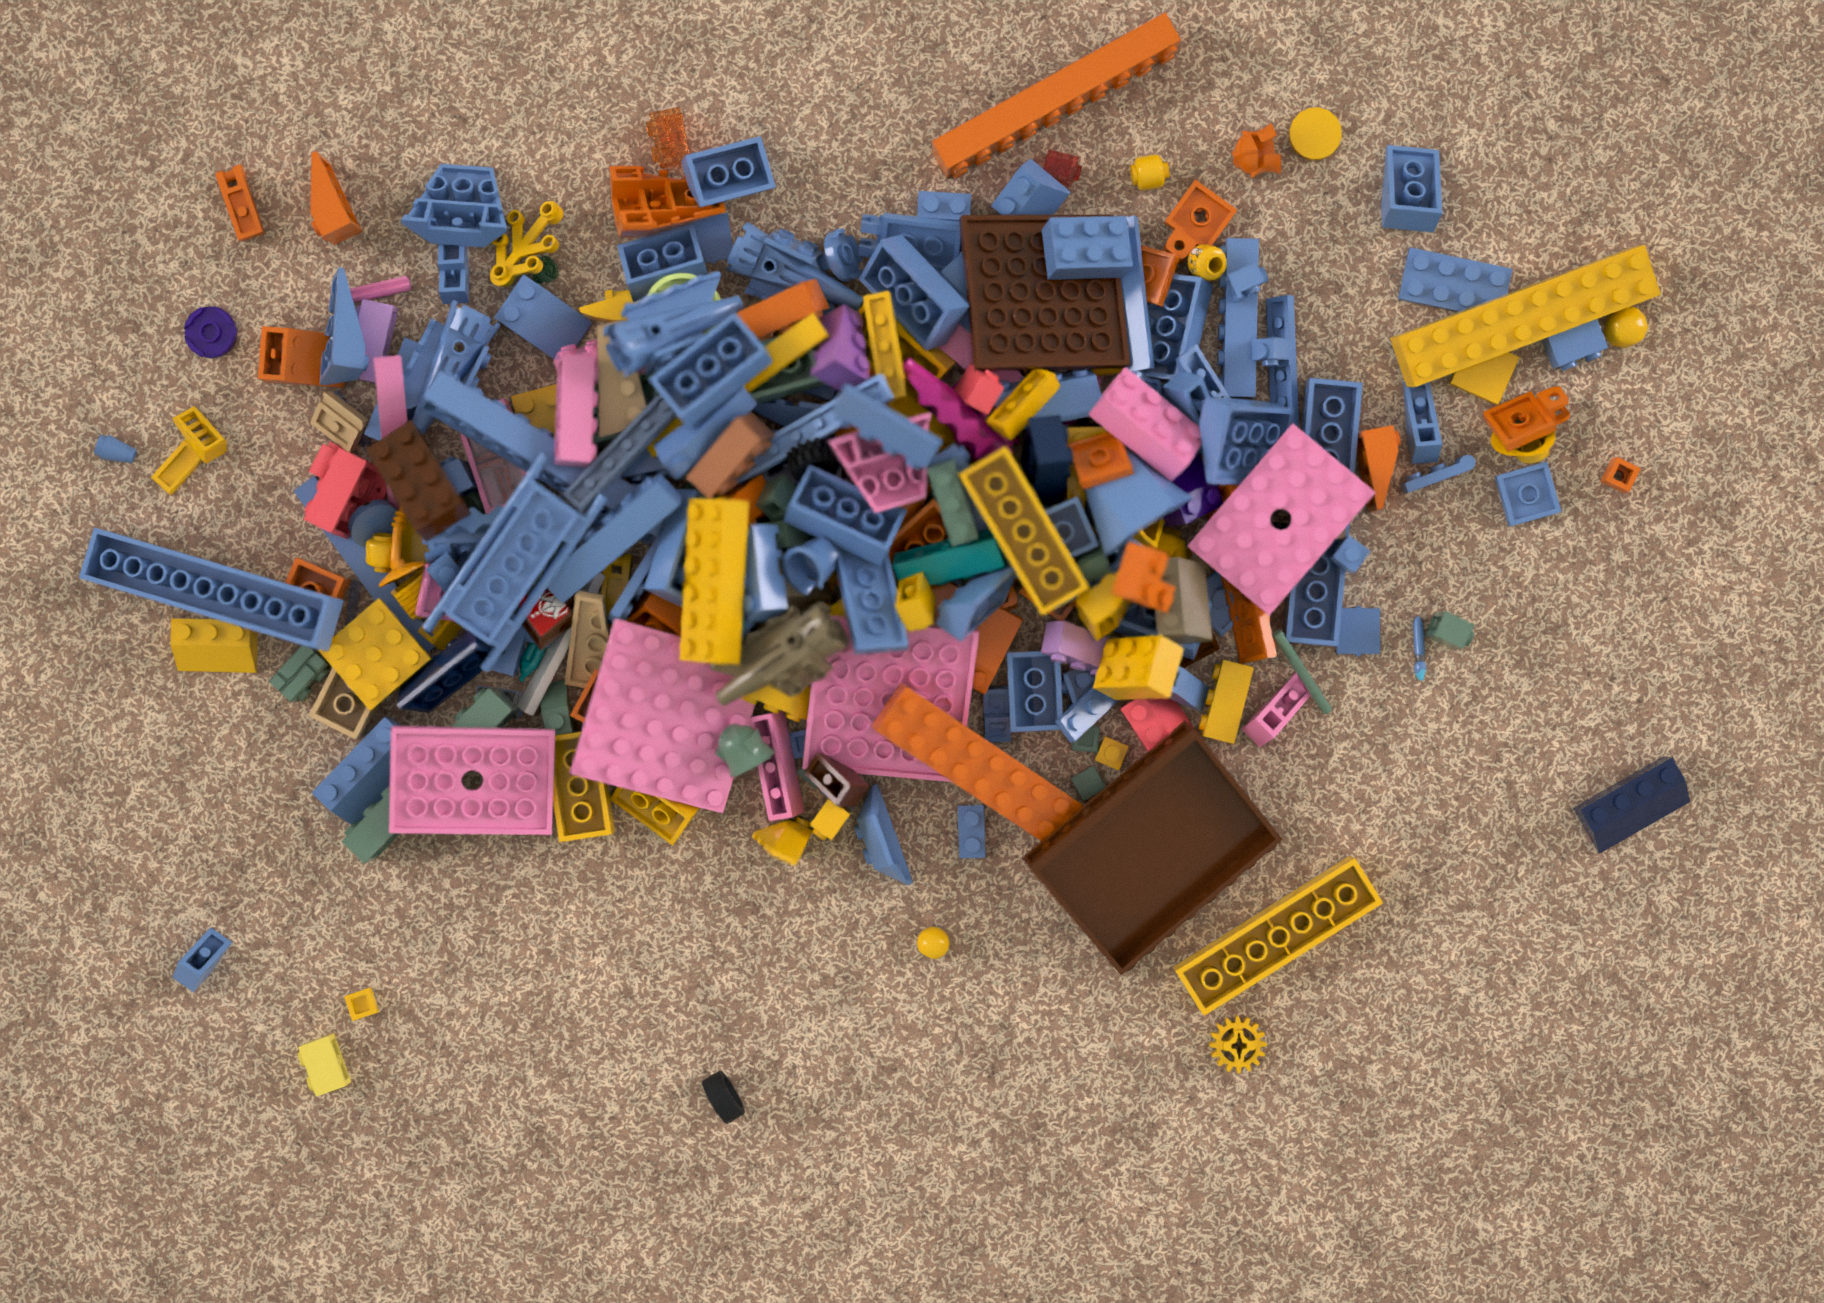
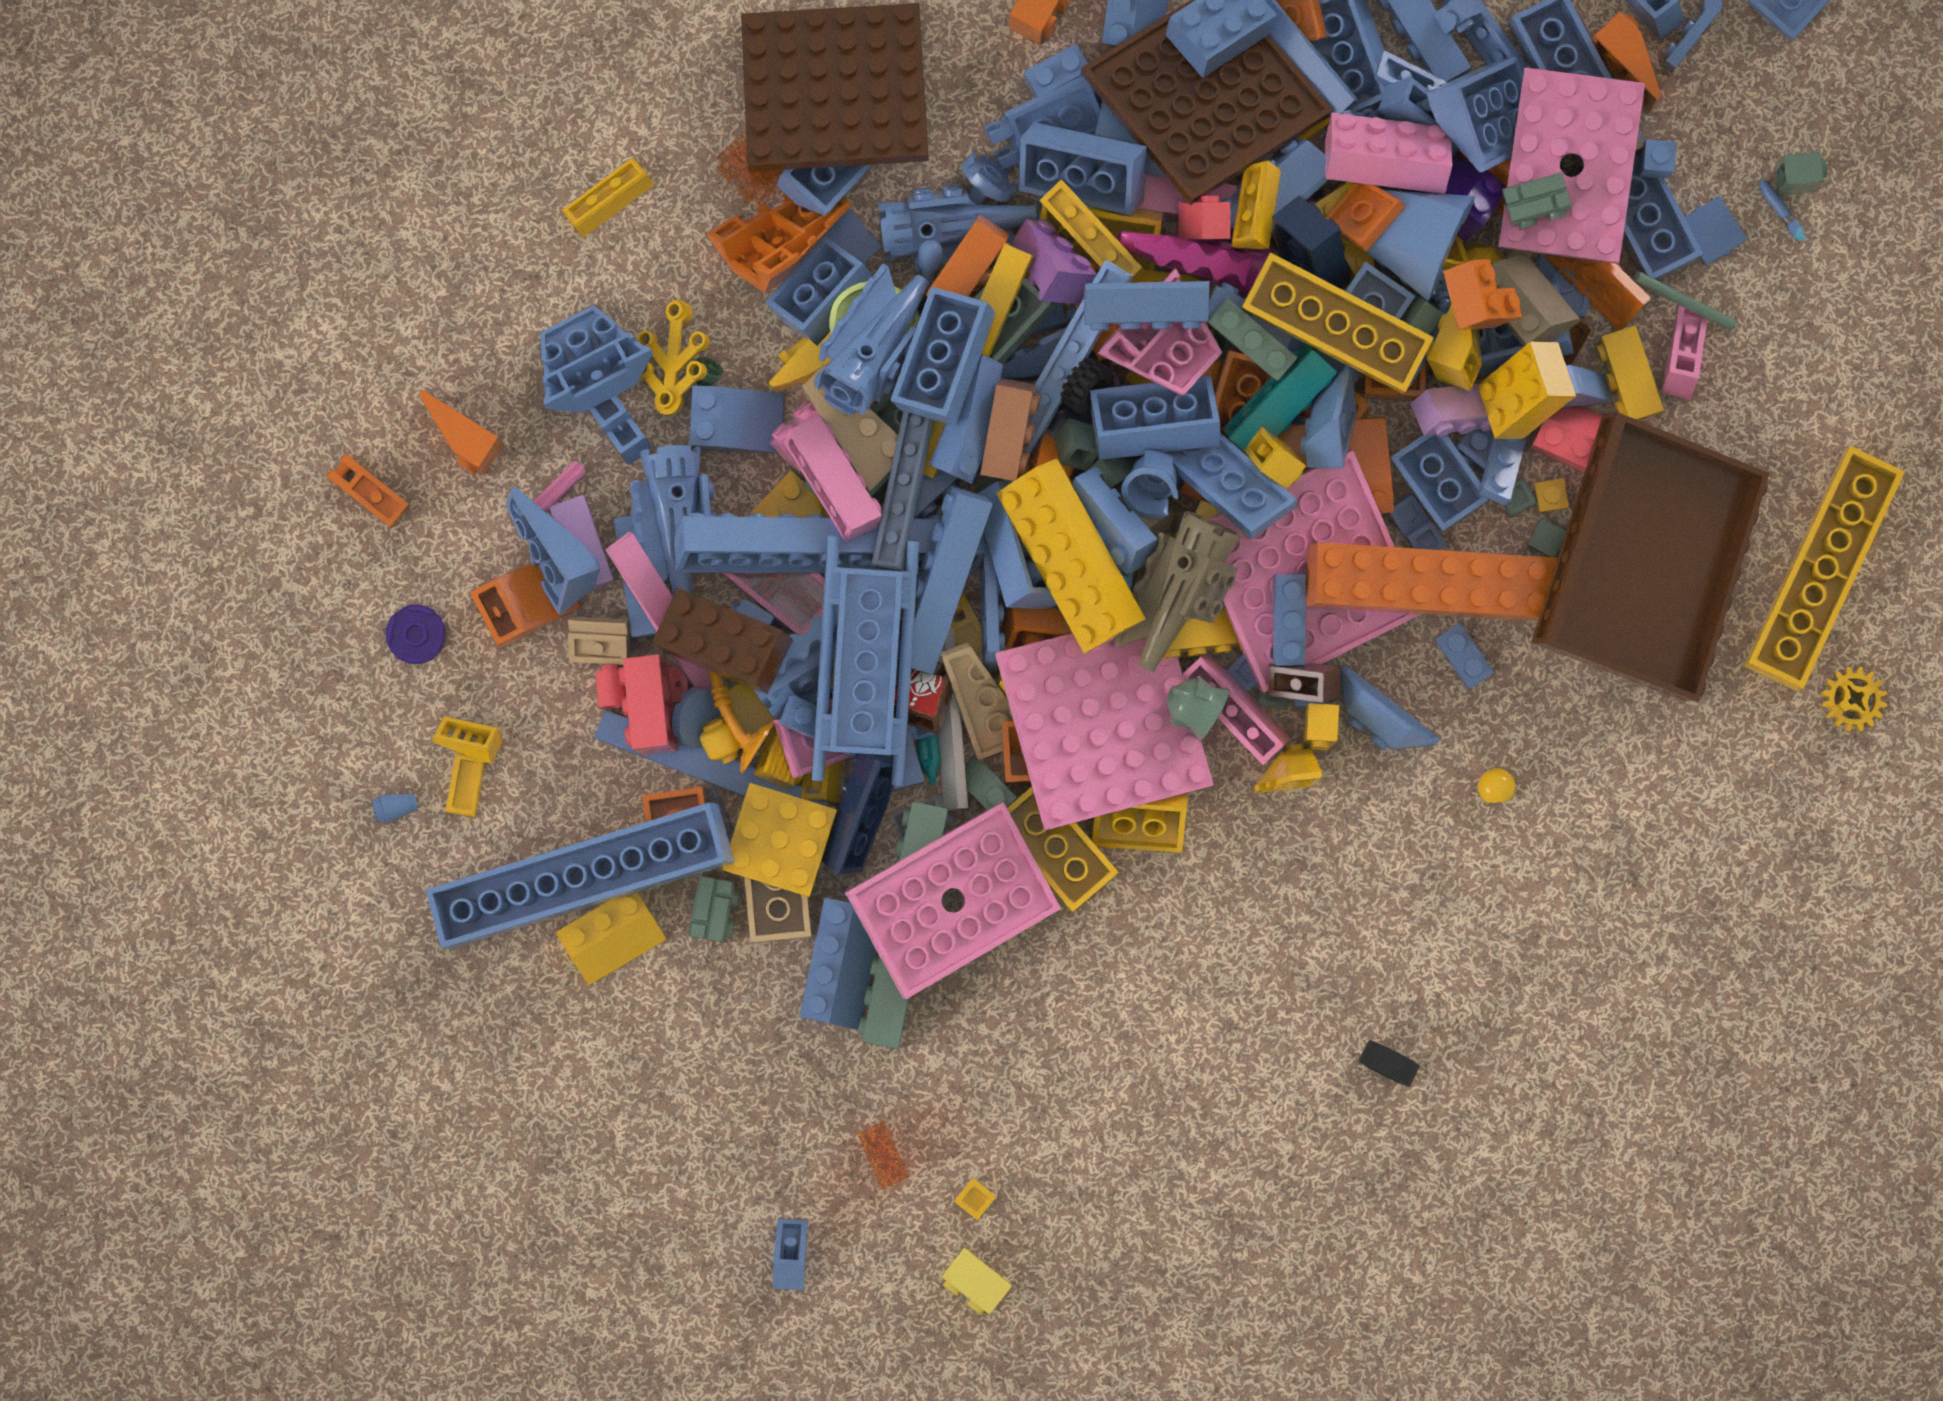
camera: 30 degrees left, 5 degrees down
(312, 931) = (883, 1154): none -> clear orange brick
(553, 96) = (610, 200): none -> yellow slope
(758, 289) = (930, 258): none -> medium blue cylinder
(768, 114) = (834, 87): none -> reddish brown plate
(853, 727) = (1289, 619): none -> medium blue plate
(1236, 530) = (1537, 201): none -> sand green brick

